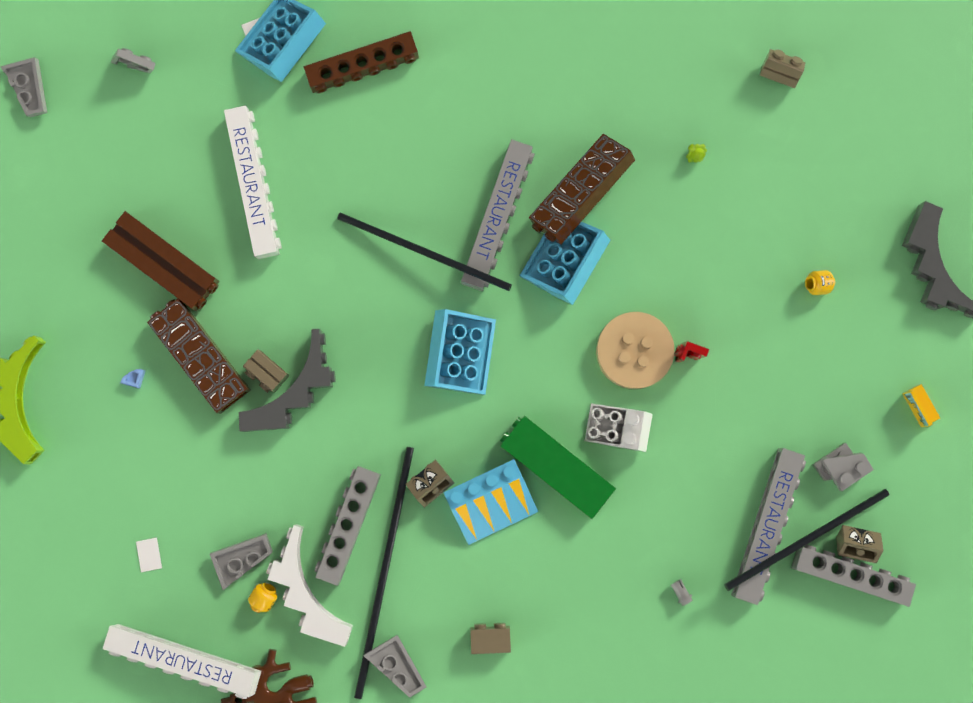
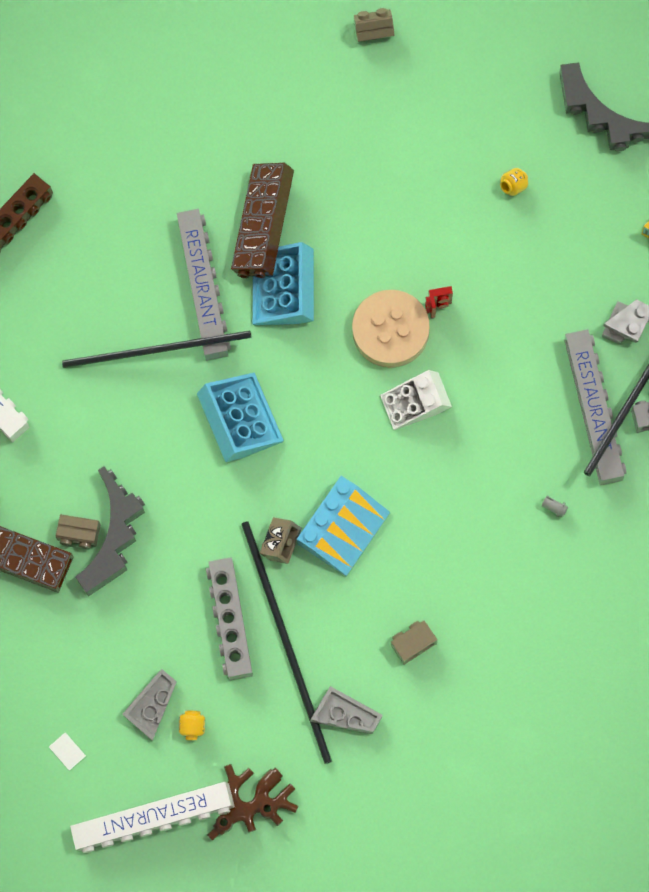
camera: 25 degrees left, 10 degrees down
(289, 572) = (252, 715): white arch -> none
(557, 466) = (382, 463): green brick -> none
(696, 153) = (343, 135): lime plant -> none

